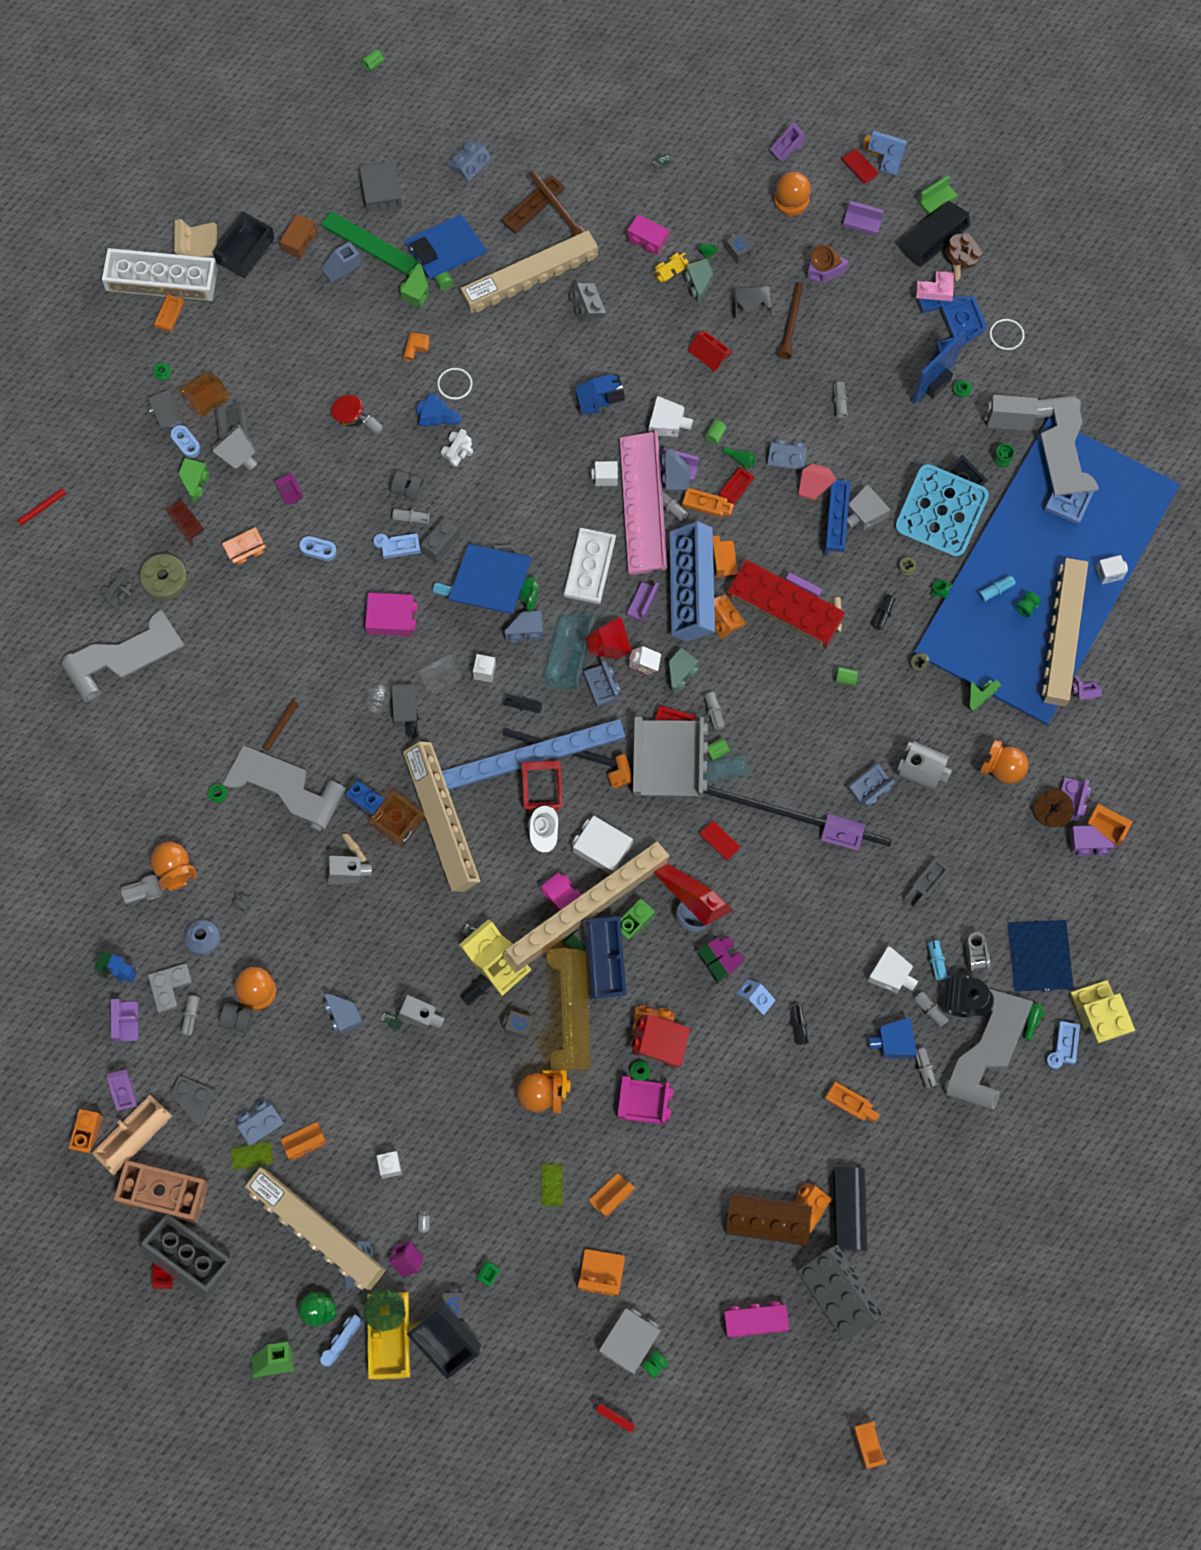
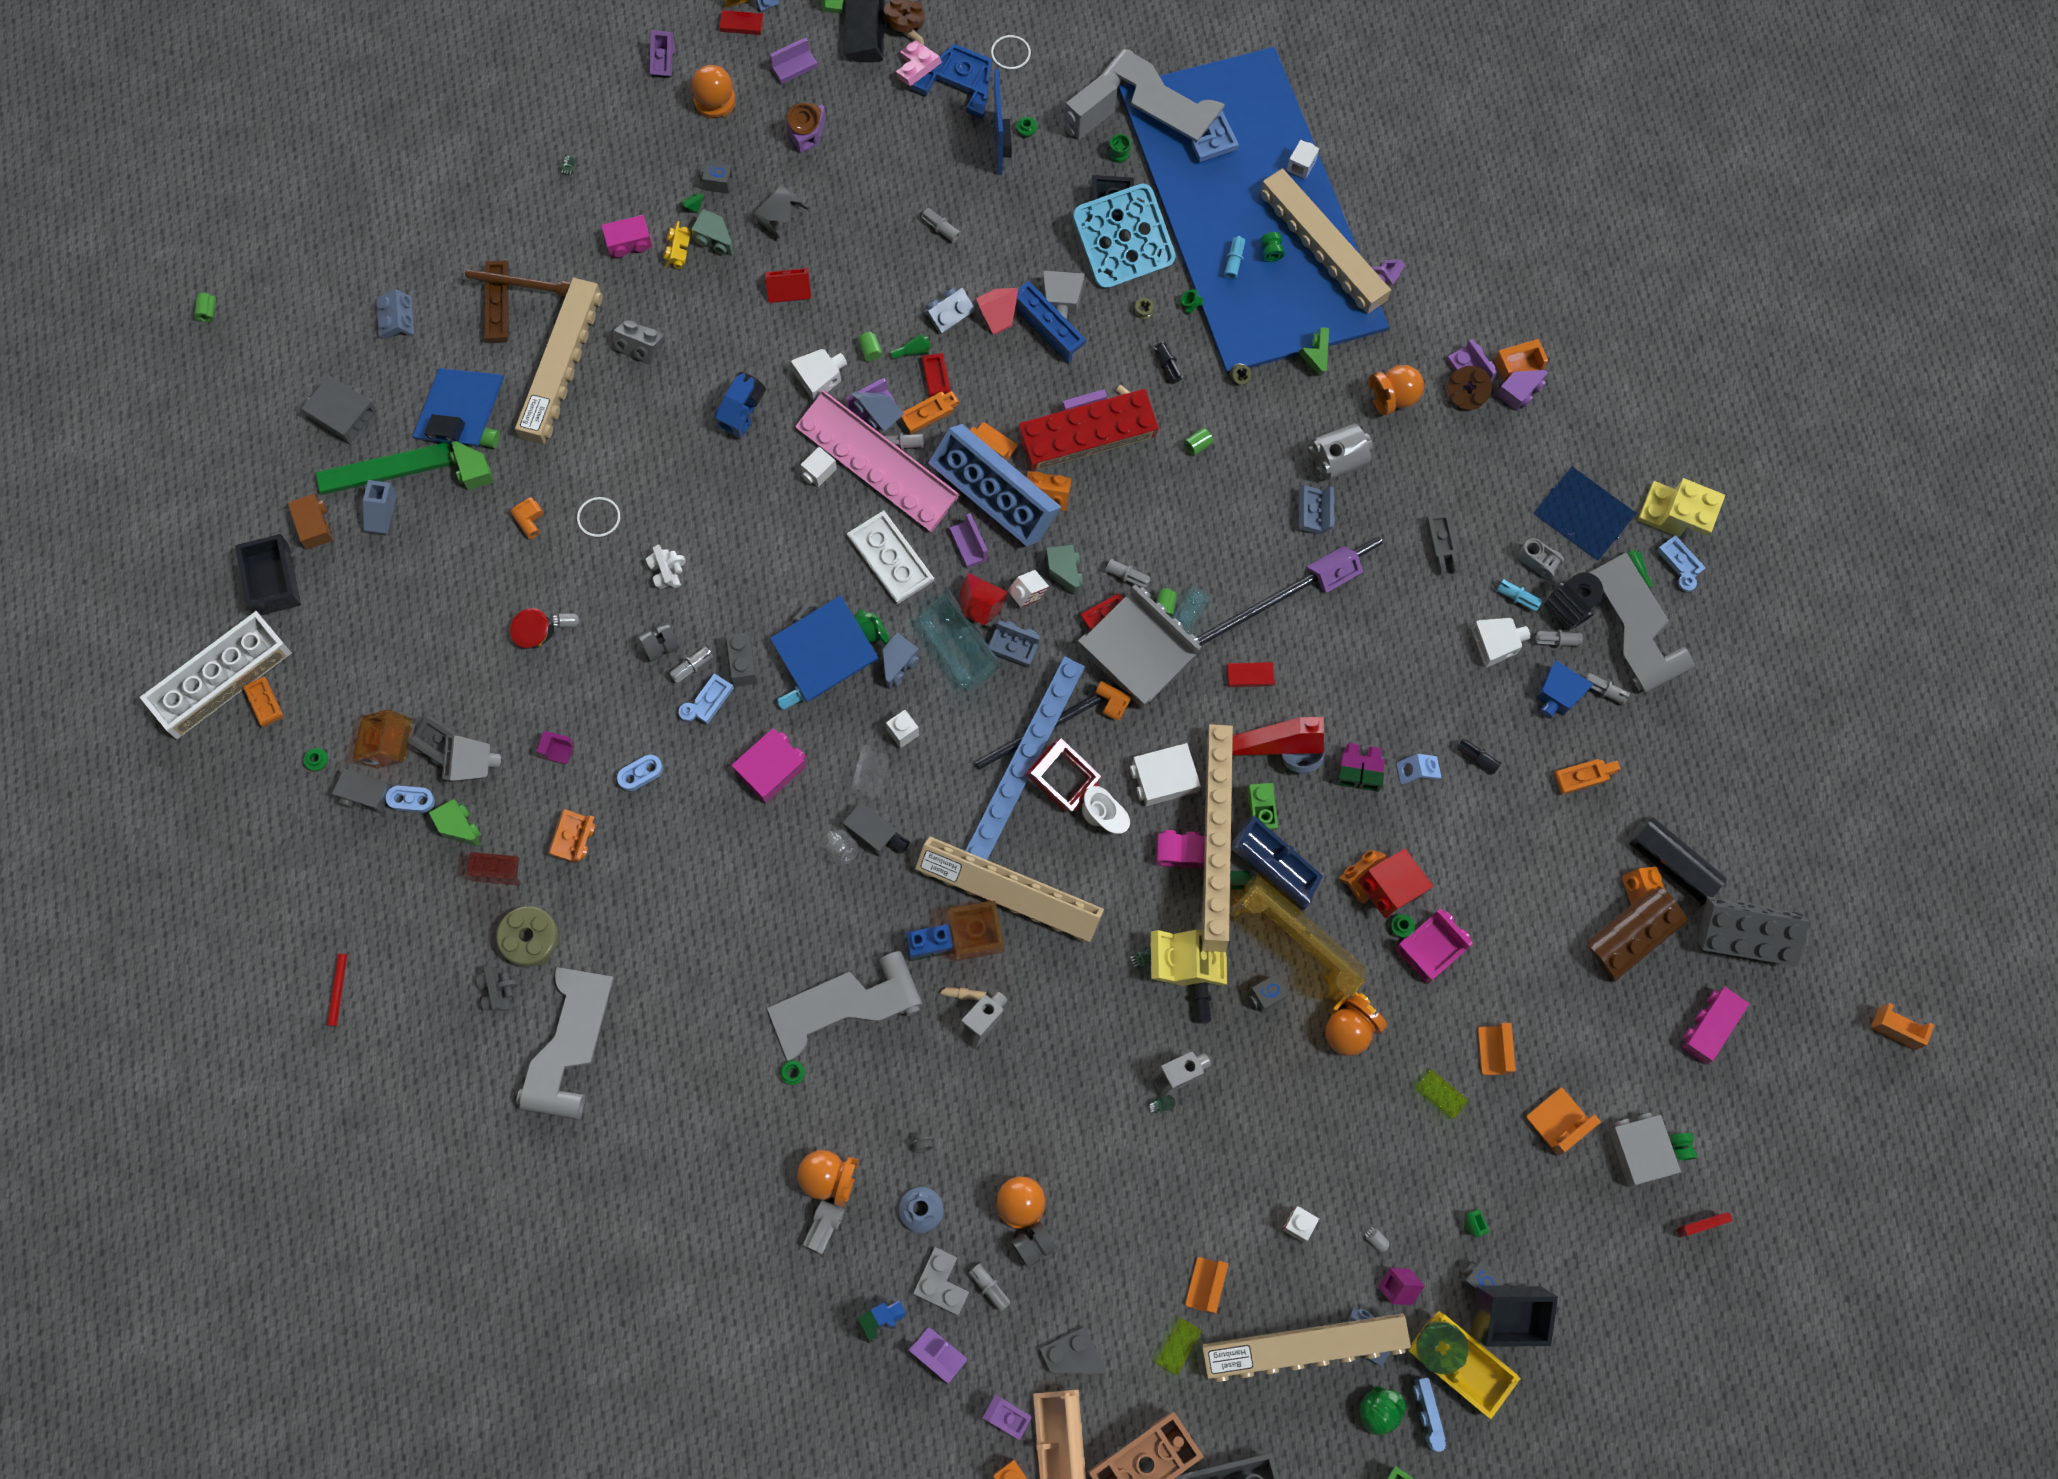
camera: 50 degrees left, 0 degrees up
(195, 240) = (216, 612): tan bracket -> none
(258, 1121) = (1151, 1311): sand blue bracket -> none
(280, 725) = (780, 957): reddish brown bar -> none
(344, 1012) = (1117, 1140): sand blue slope -> none
(436, 412) = (612, 556): blue rock -> none
(523, 703) = (967, 726): black axle -> none
(785, 350) = (851, 226): reddish brown piece -> none

